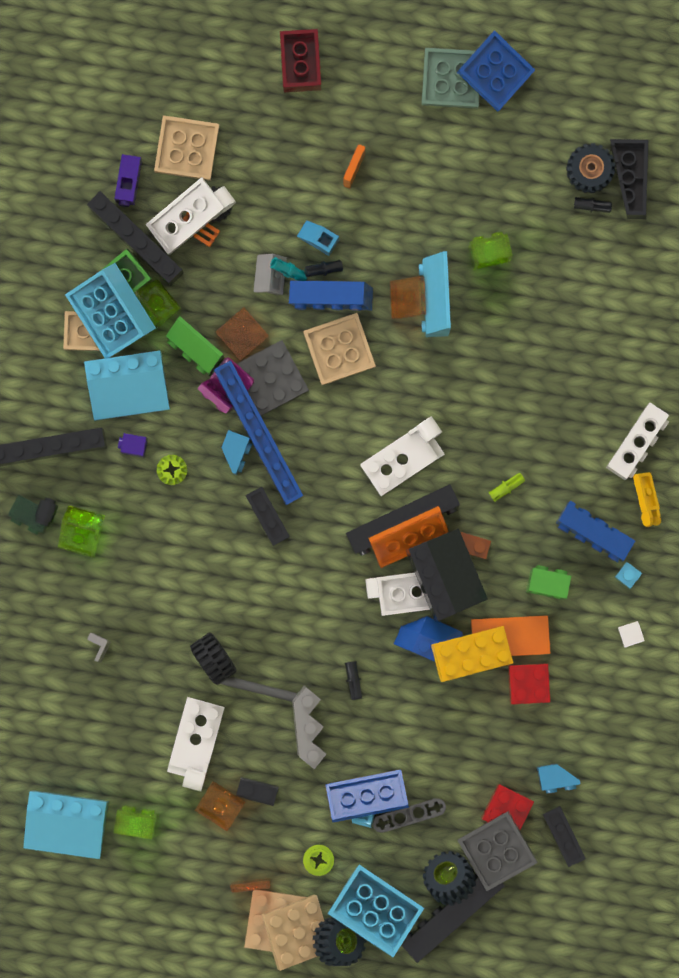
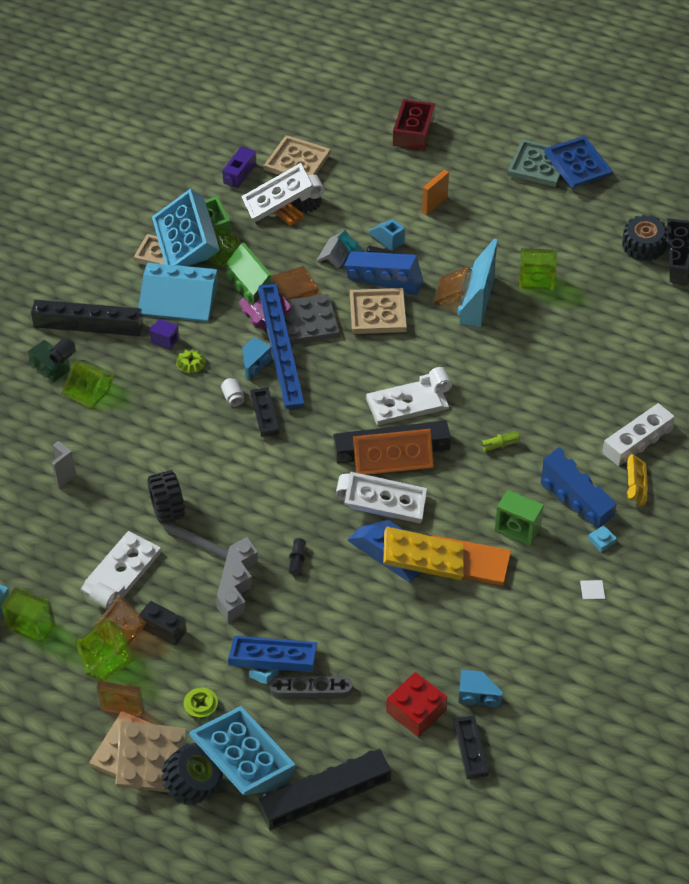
camera: 15 degrees right, 35 degrees down
(135, 238) = (239, 214): black brick -> none
(218, 841) = (104, 651): none -> clear neon green brick
(228, 500) = (232, 392): none -> white brick
(446, 575) = (418, 486): black slope -> none
(449, 878) = (332, 744): black wheel -> none
(476, 546) = (450, 479): dark orange plate -> none
(497, 851) = (393, 727): dark grey plate -> none
(529, 684) = (474, 599): red brick -> none
(592, 205) = (639, 264): black axle -> none

